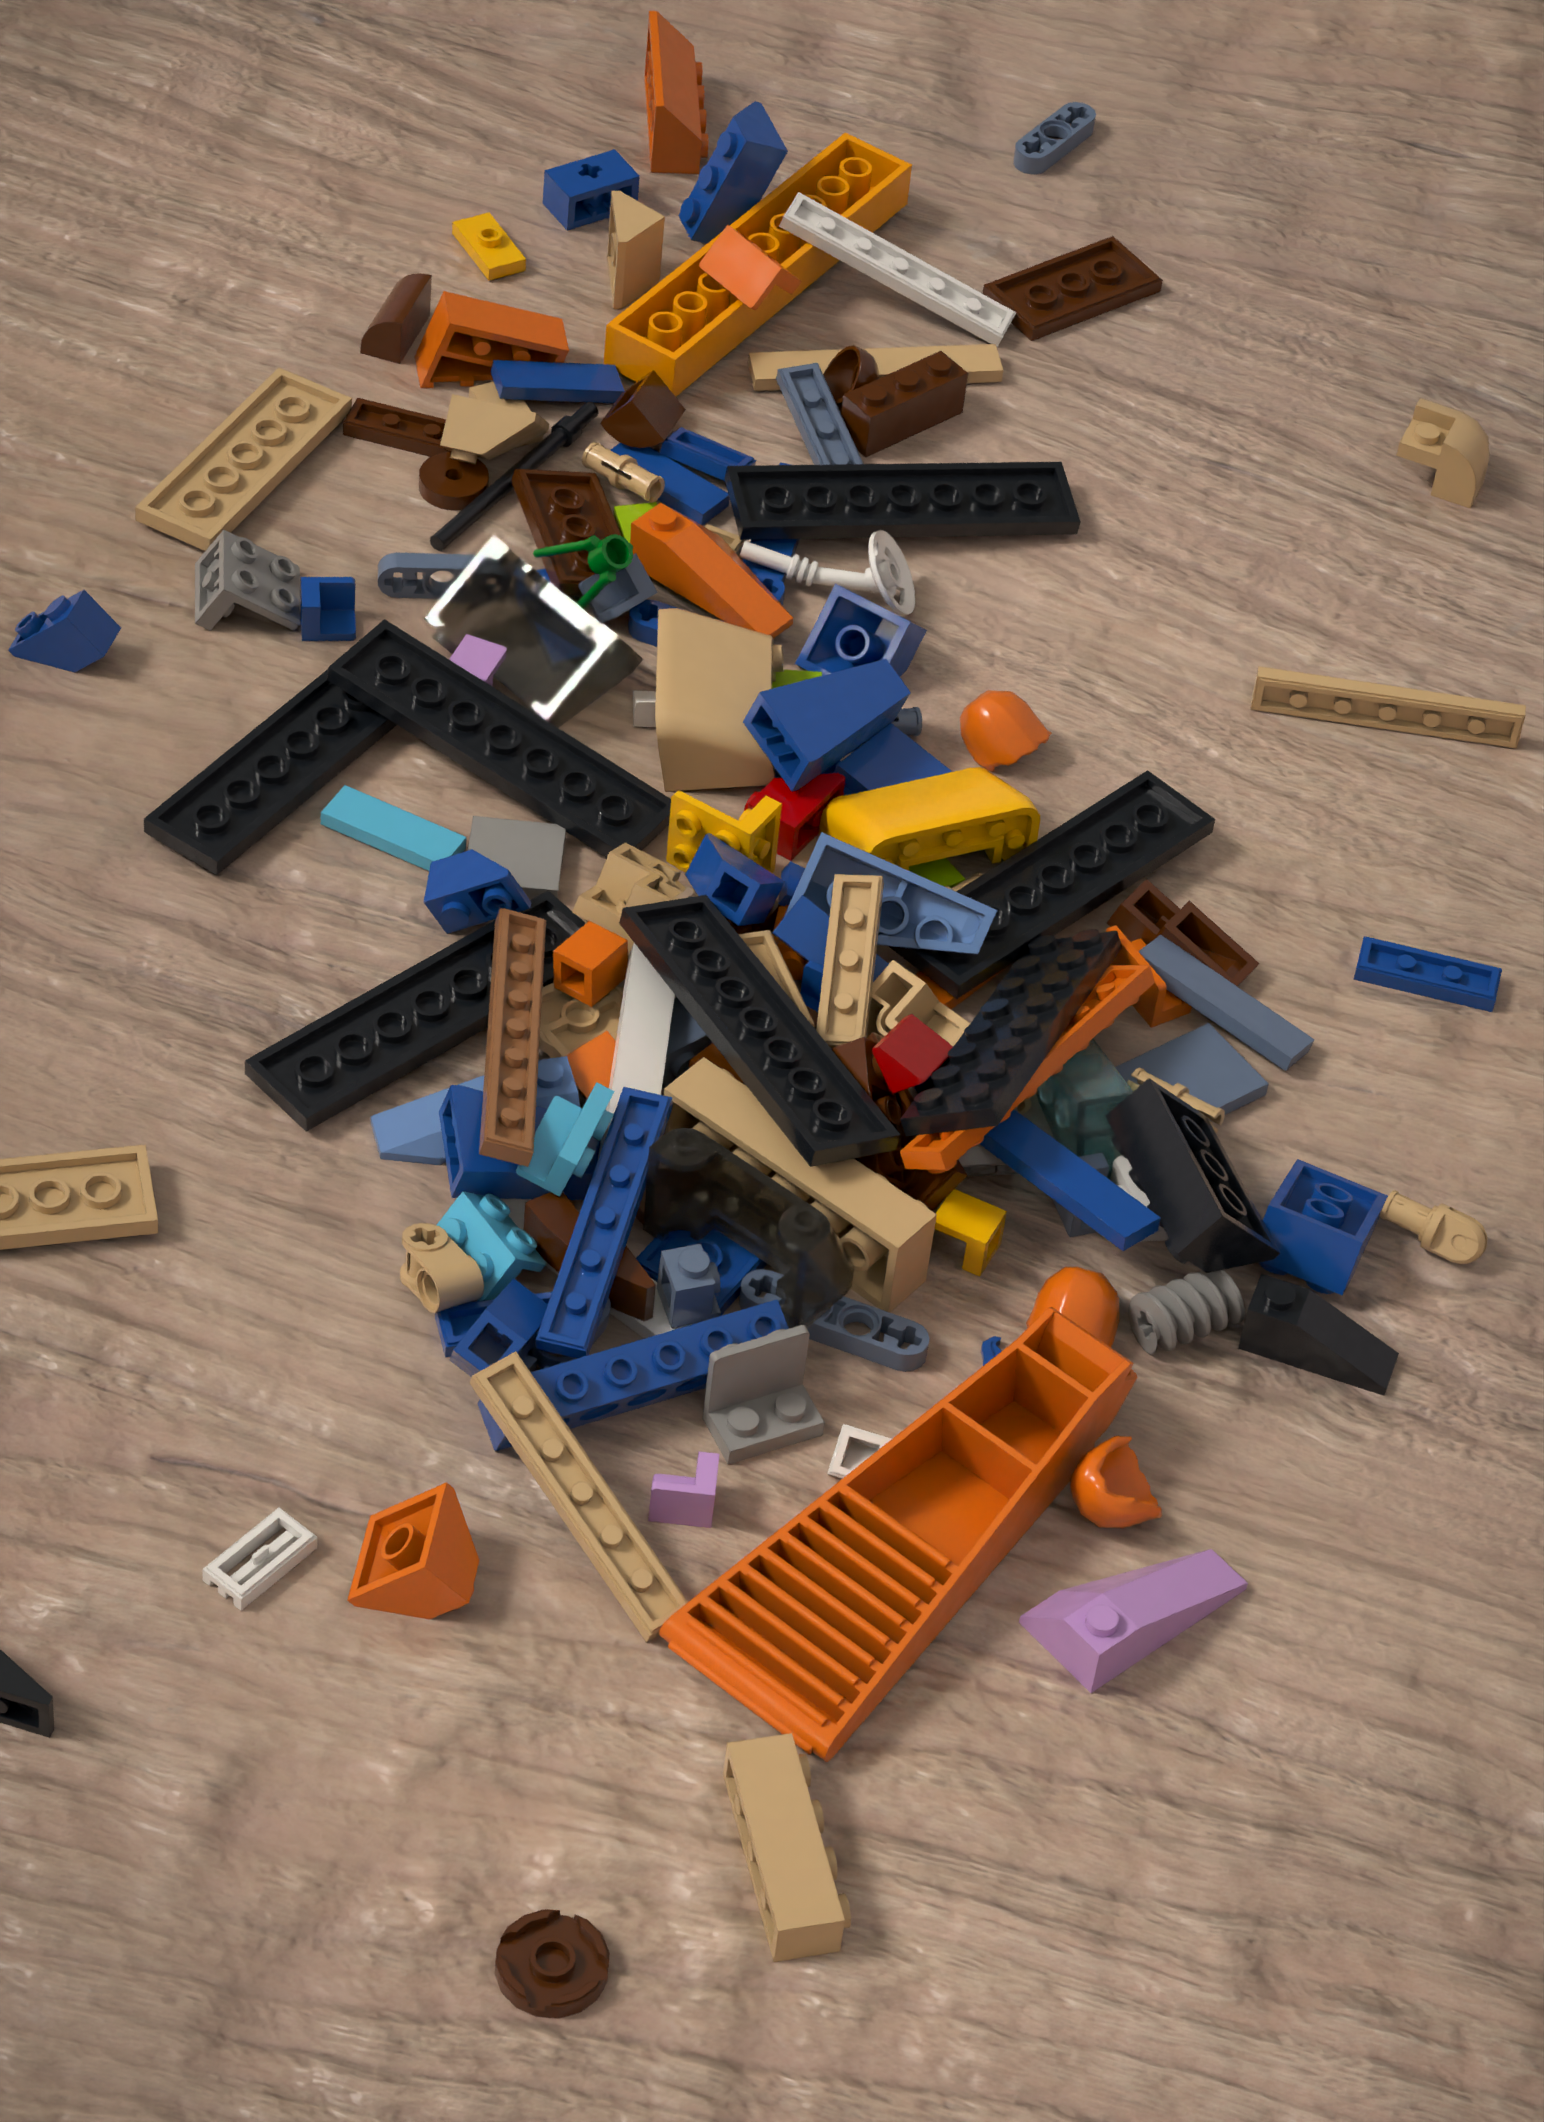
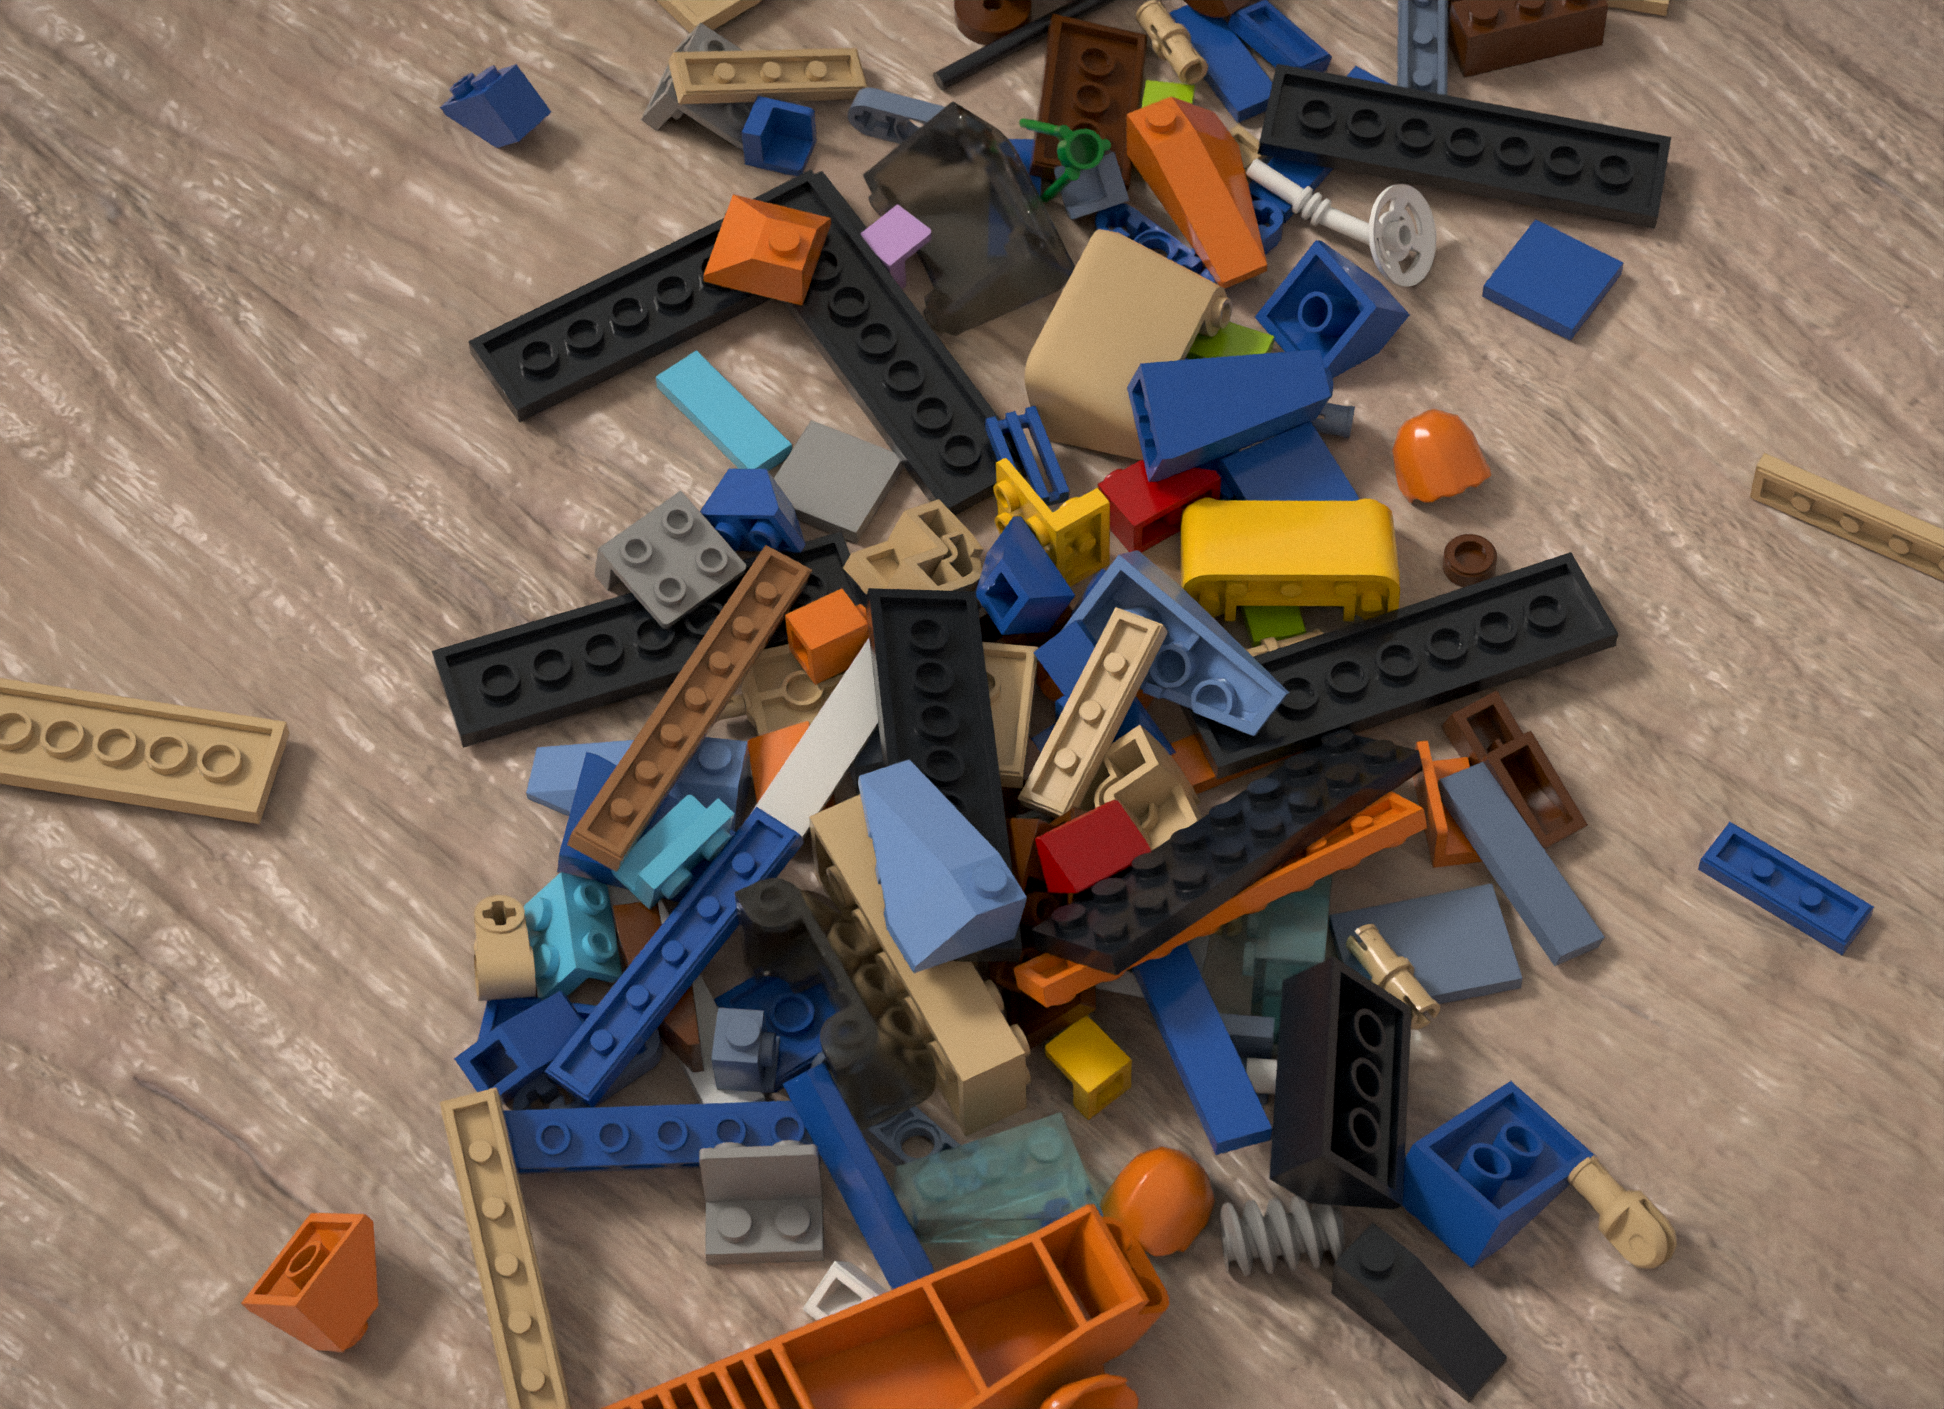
camera: 30 degrees right, 10 degrees up
(267, 1563) = (182, 1236): white tile -> none
(287, 561) = (766, 73): none -> tan tile
(383, 686) = (767, 249): none -> orange slope
(417, 941) = (669, 560): none -> light grey bracket
(669, 781) = (1015, 425): none -> blue tile
(686, 1499) = (636, 1291): lavender panel -> none
(821, 1093) = (936, 872): none -> medium blue wedge
(841, 1347) = (858, 1176): none -> blue tile
(949, 1329) = (995, 1185): none -> clear light blue wedge
(1018, 586) = (1552, 279): none -> blue tile
(1062, 800) = (1469, 560): none -> reddish brown tile

